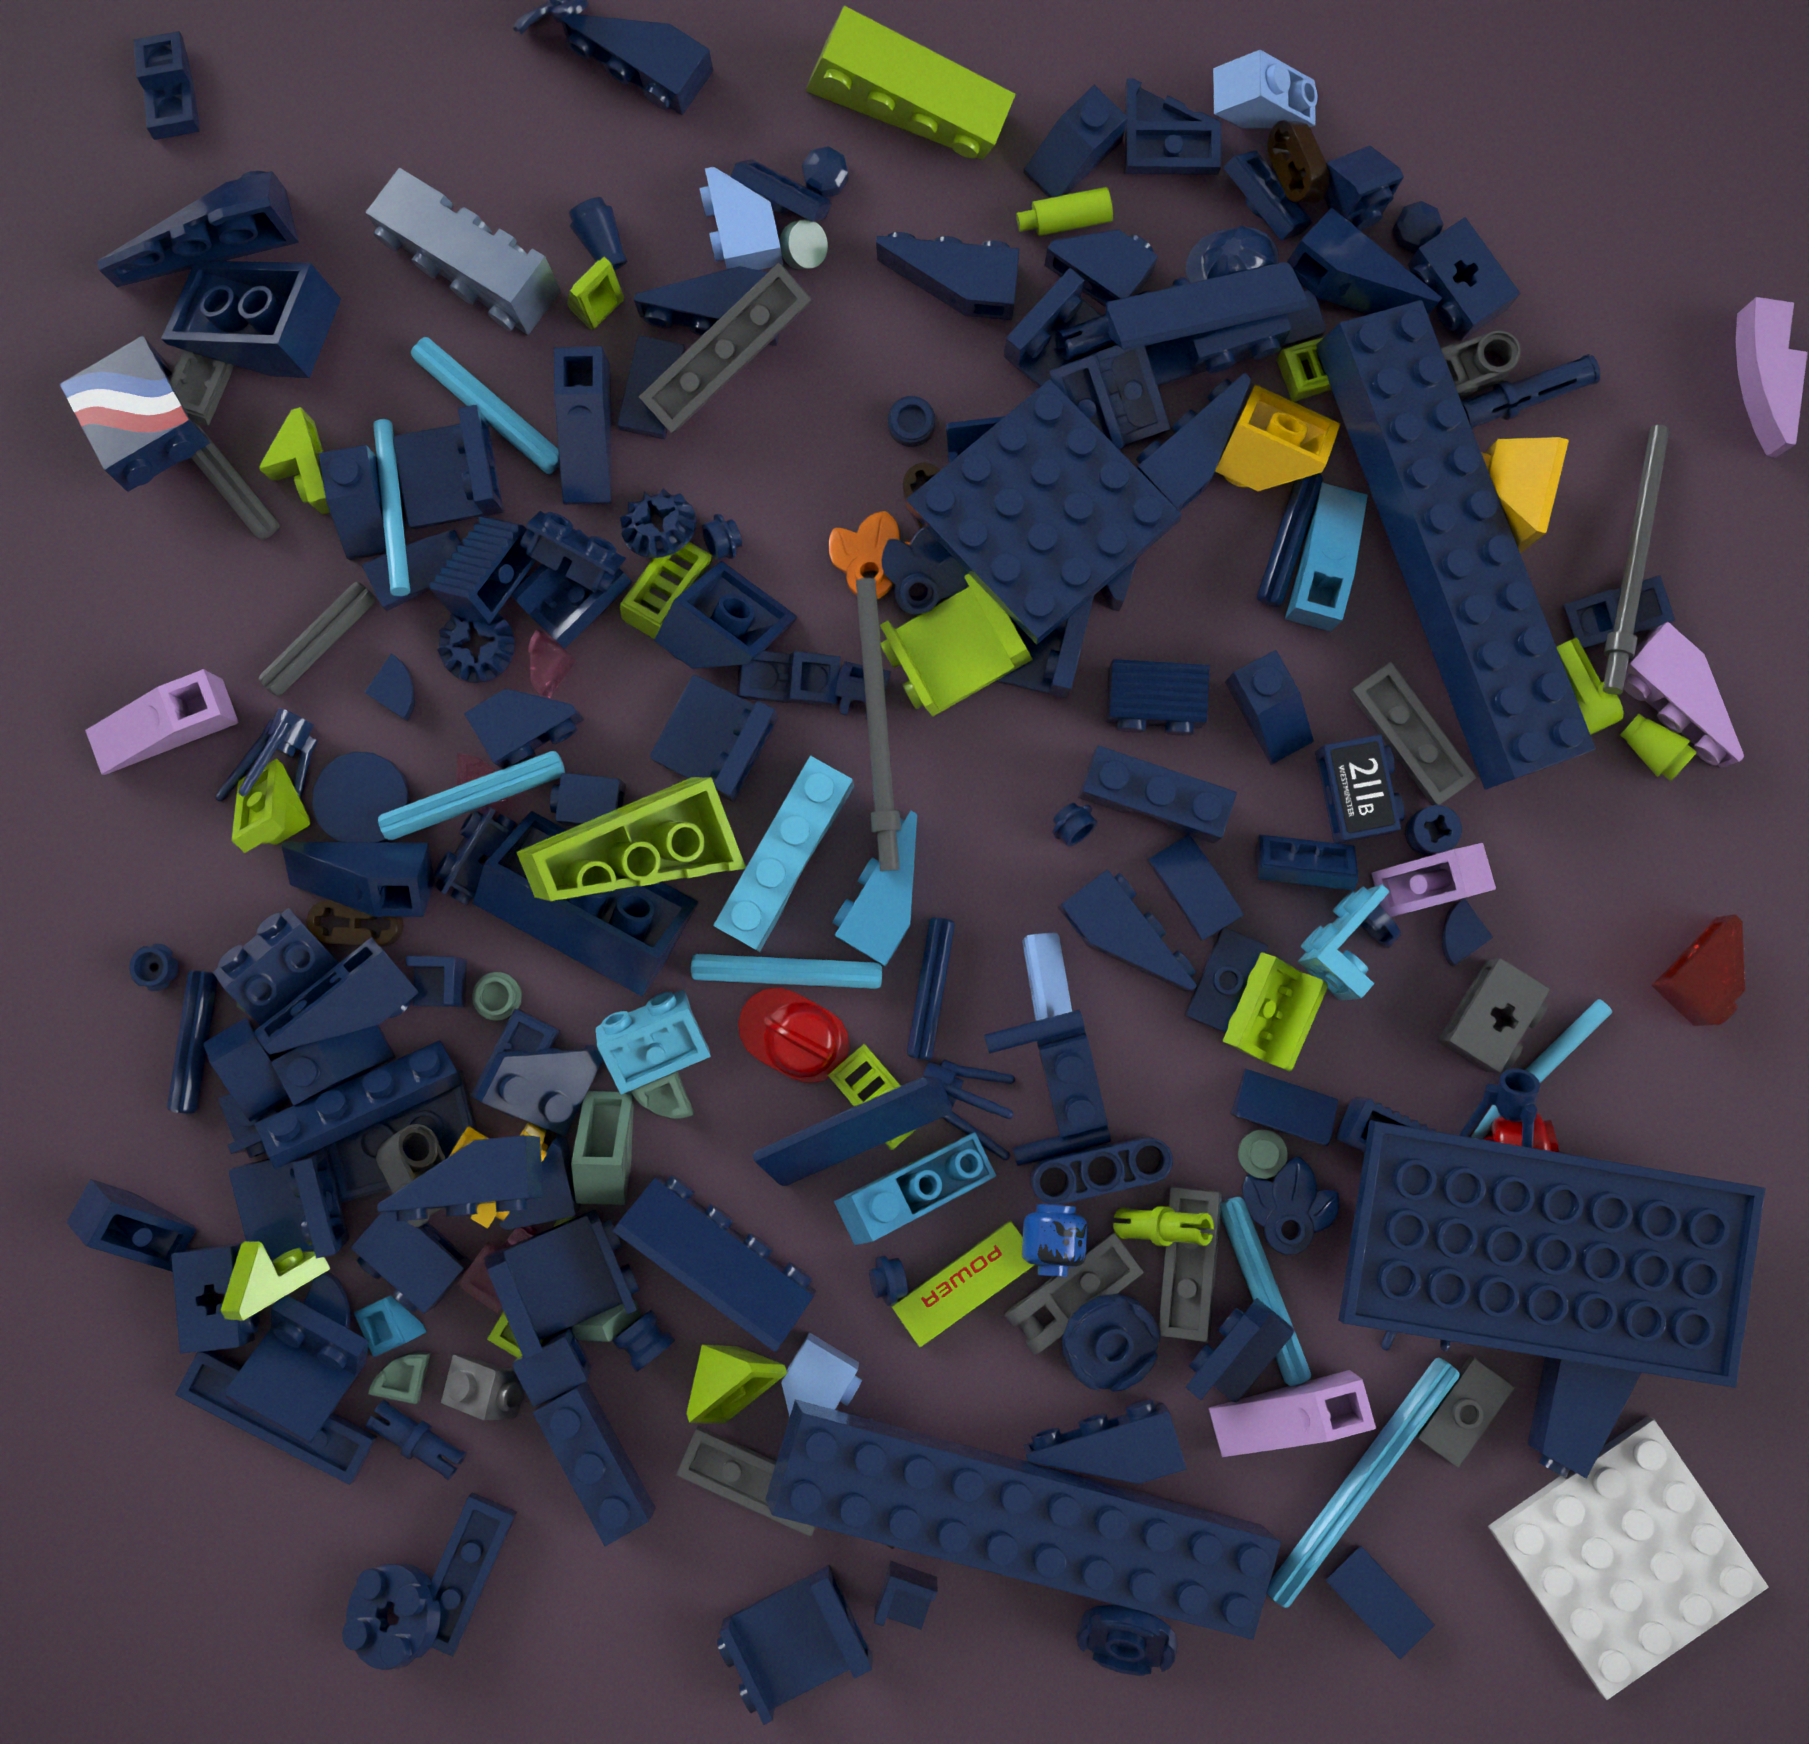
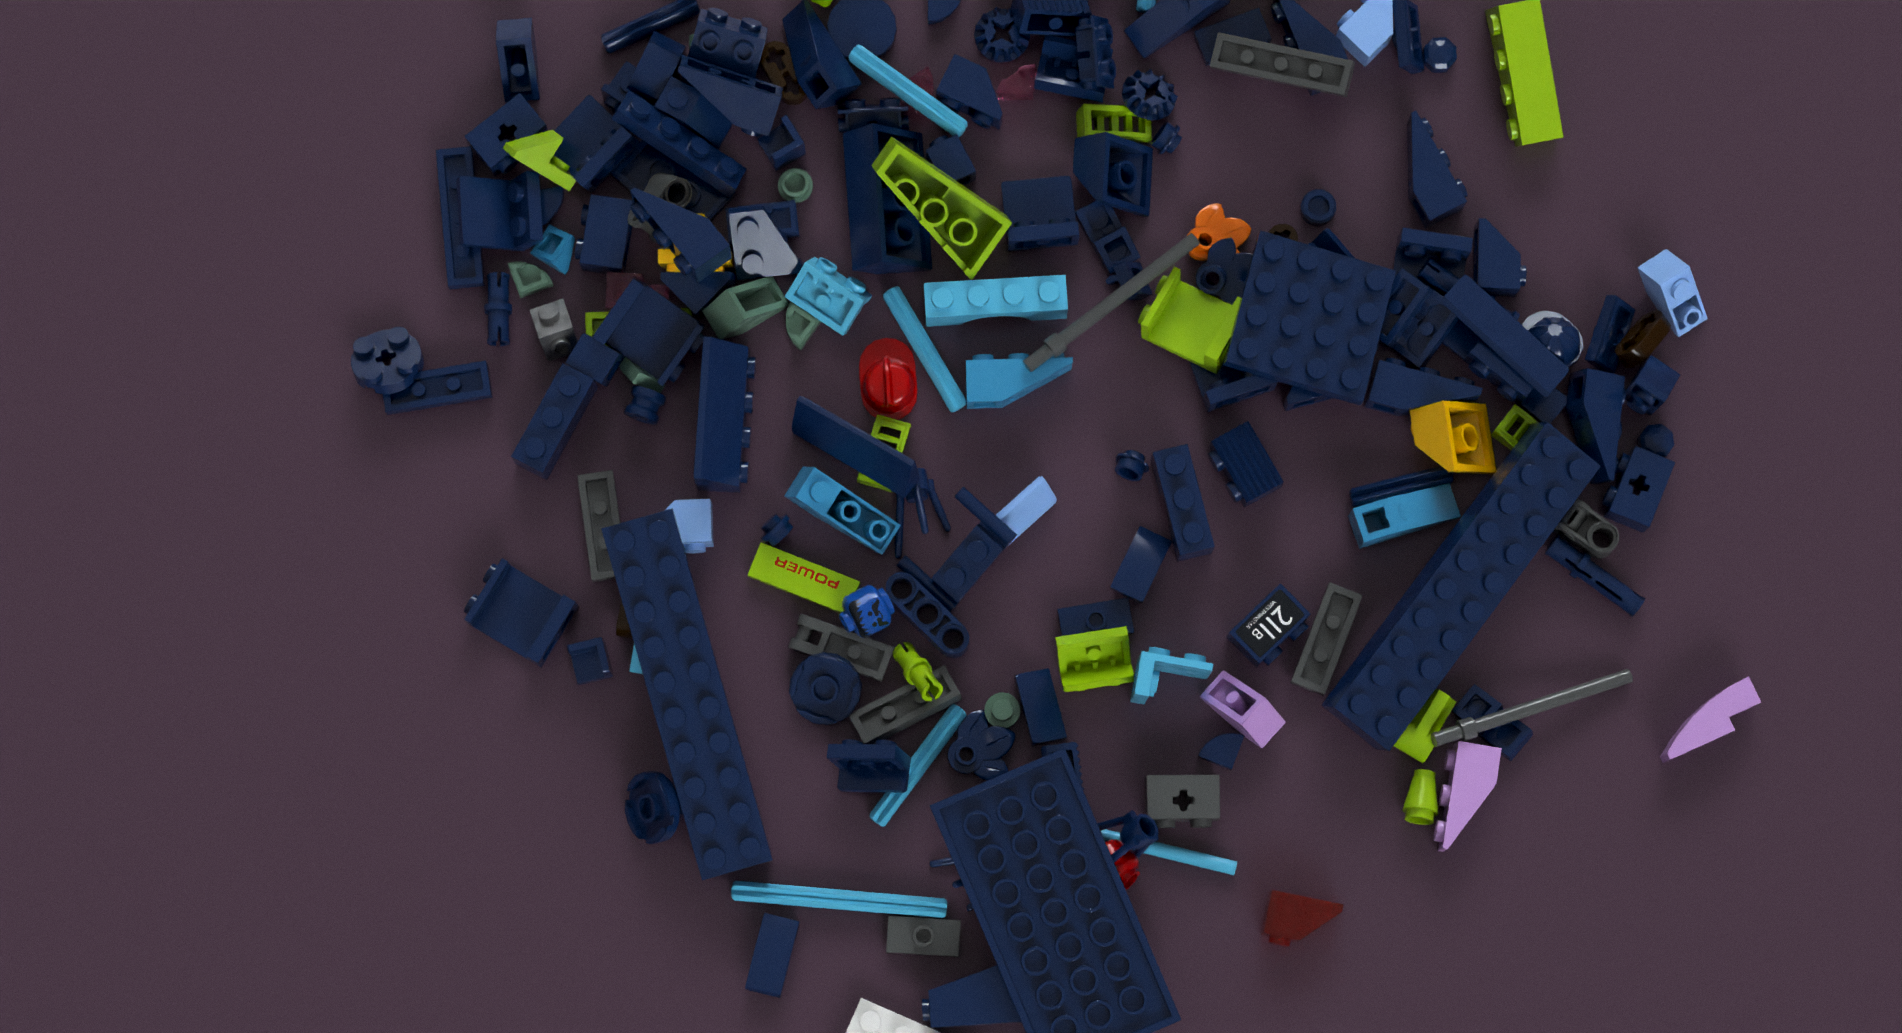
camera: 55 degrees right, 5 degrees down
(728, 1382) = (651, 471): lime slope -> none
(803, 244) = (1383, 70): tile -> none
(930, 988) = (971, 443): dark blue axle -> none
(1067, 212) = (1514, 218): lime cylinder -> none
(1077, 143) = (1560, 196): dark blue slope -> none
(1114, 925) = (1082, 528): dark blue slope -> none
(1122, 1448) = (768, 739): dark blue slope -> none
(1168, 136) = (1606, 249): dark blue wing -> none
(1271, 706) = (1285, 540): dark blue slope -> none
(1294, 1415) = (851, 825): lavender slope -> none
(1306, 862) = (1201, 622): dark blue plate -> none
(1381, 927) = (1192, 692): dark blue tile -> none
(1424, 835) = (1273, 690): dark blue wheel -> none
(1526, 482) = (1527, 601): yellow slope -> none

